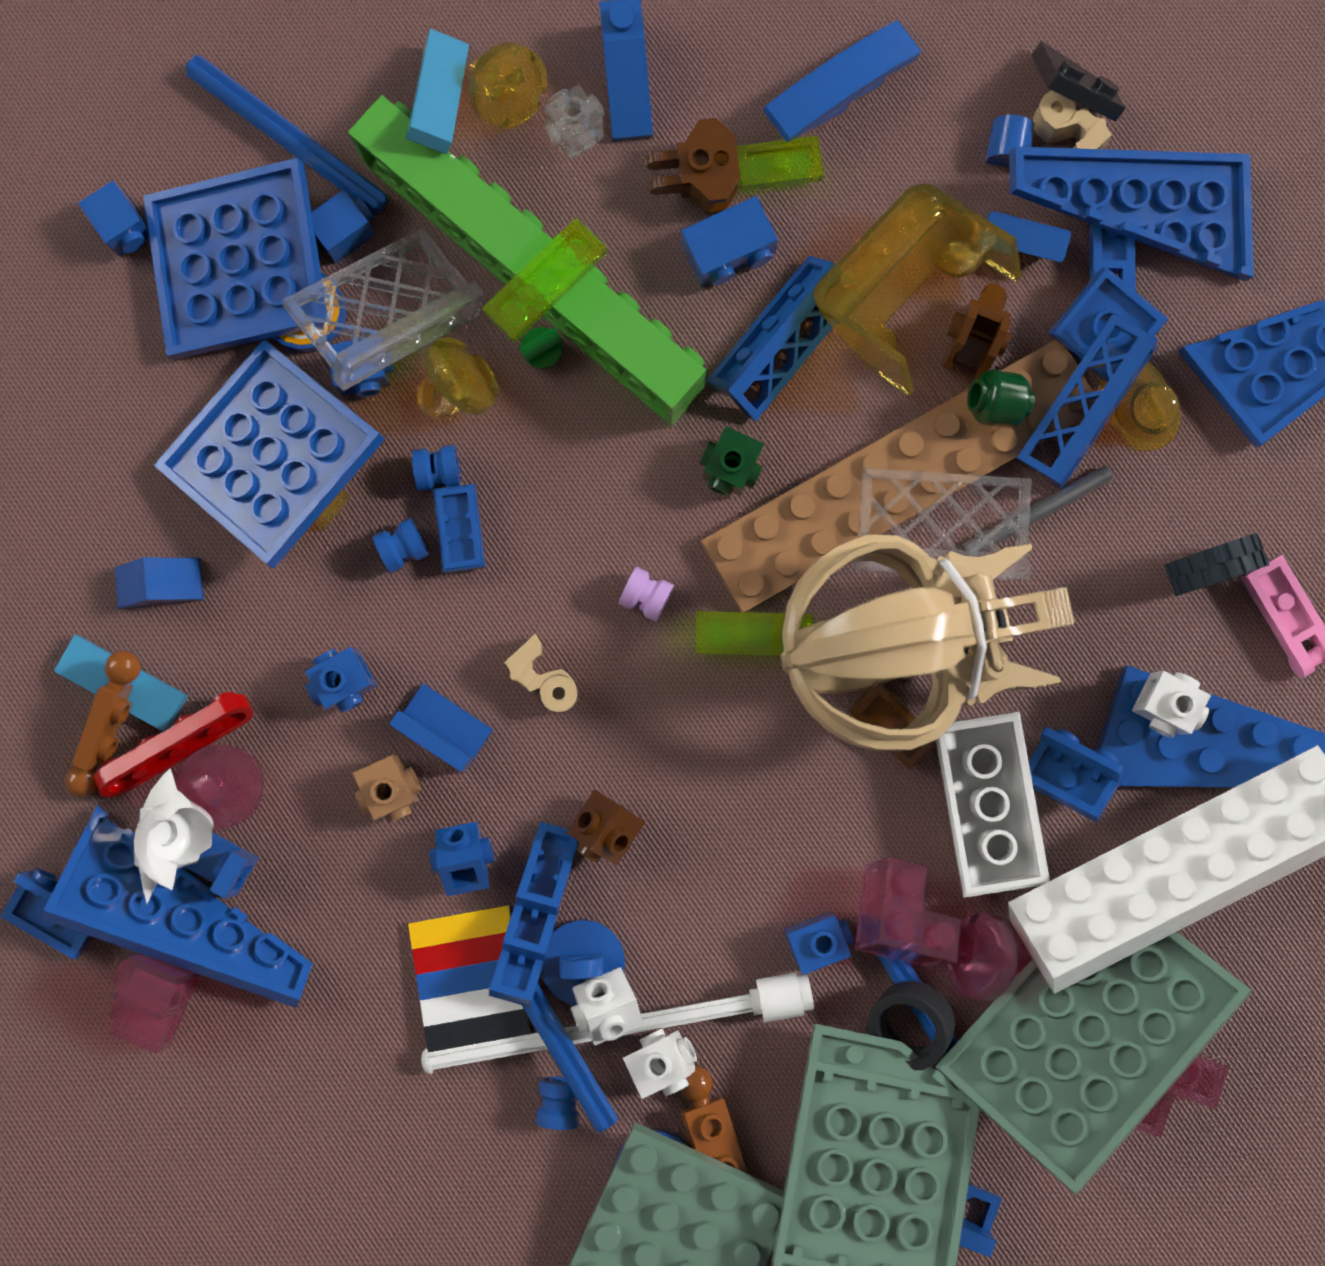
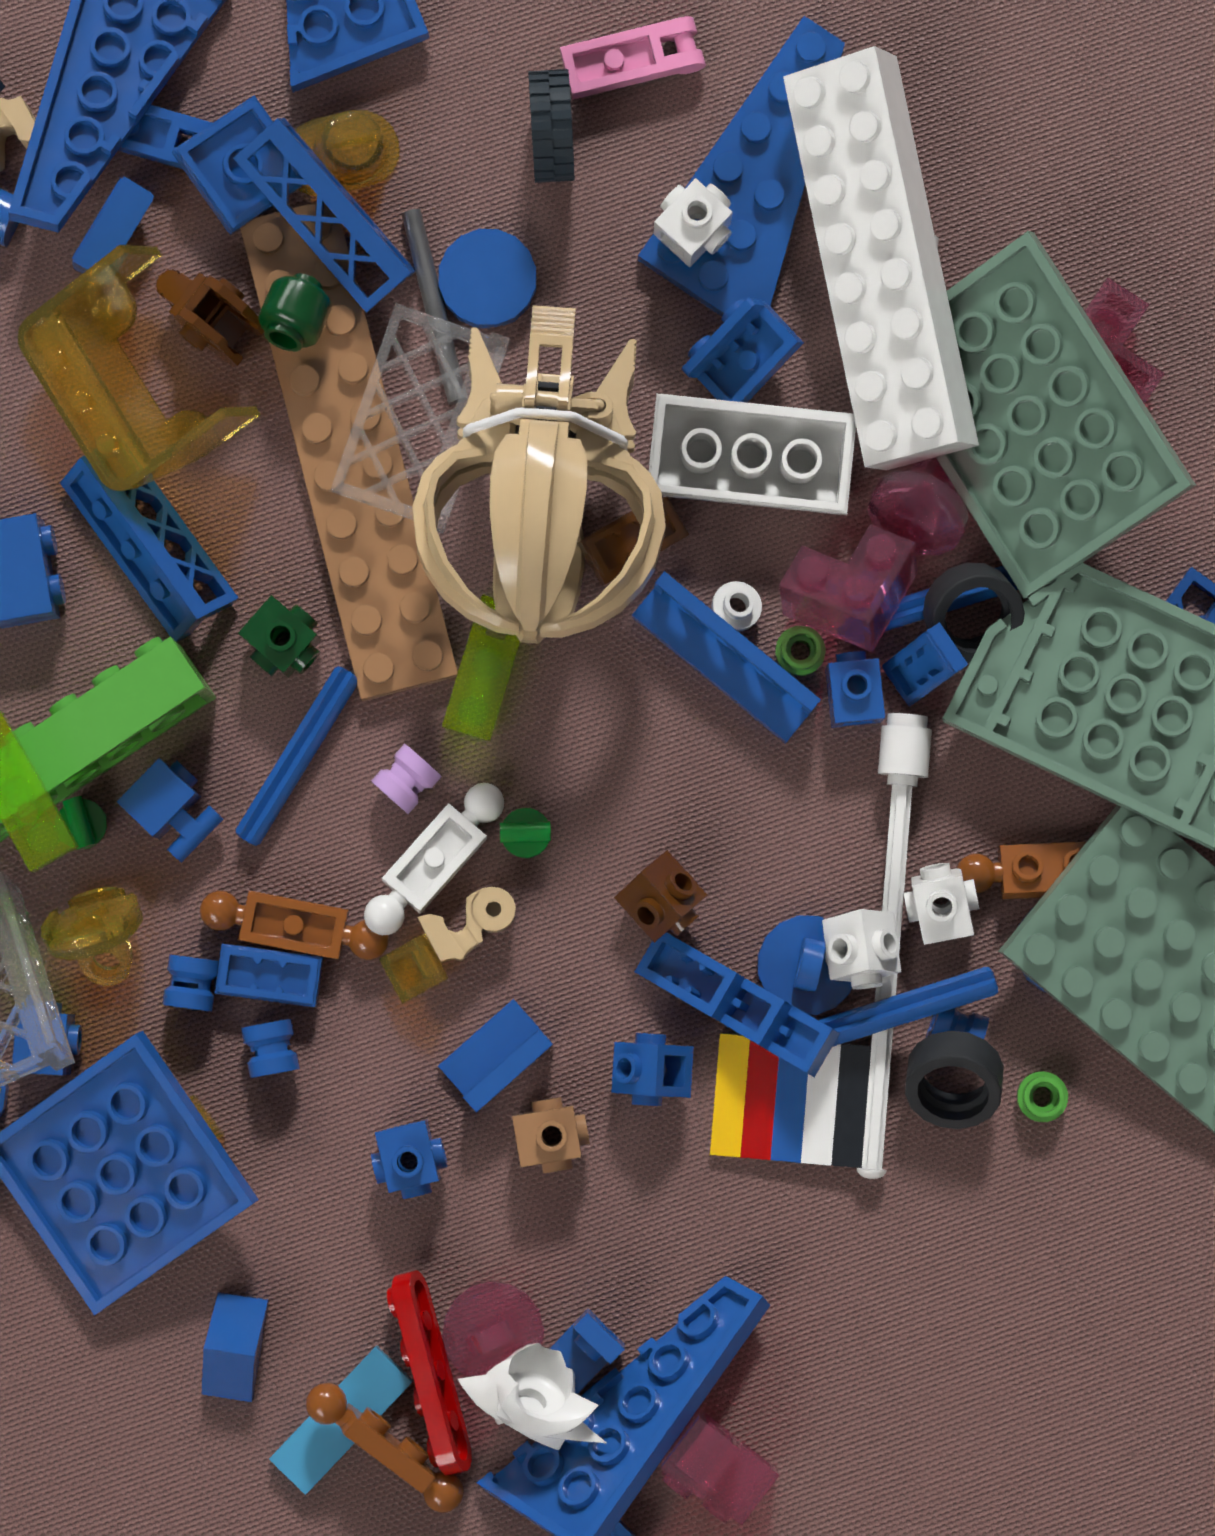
camera: 75 degrees left, 0 degrees up
(494, 642) = (413, 968): none -> clear yellow brick
(504, 537) = (291, 925): none -> dark orange plate
(523, 1201) = (1058, 1096): none -> bright green plate
(540, 1113) = (954, 1109): none -> black tyre
(575, 405) = (162, 802): none -> blue brick
(587, 634) = (434, 859): none -> white plate
(629, 702) = (525, 832): none -> green plate
(641, 502) = (297, 756): none -> blue axle
(816, 828) = (725, 657): none -> blue fence
(850, 821) = (738, 620): none -> white plate
(851, 894) = (804, 635): none -> bright green plate
(856, 996) = (924, 664): none -> blue plate
(1072, 548) = (487, 278): none -> blue tile

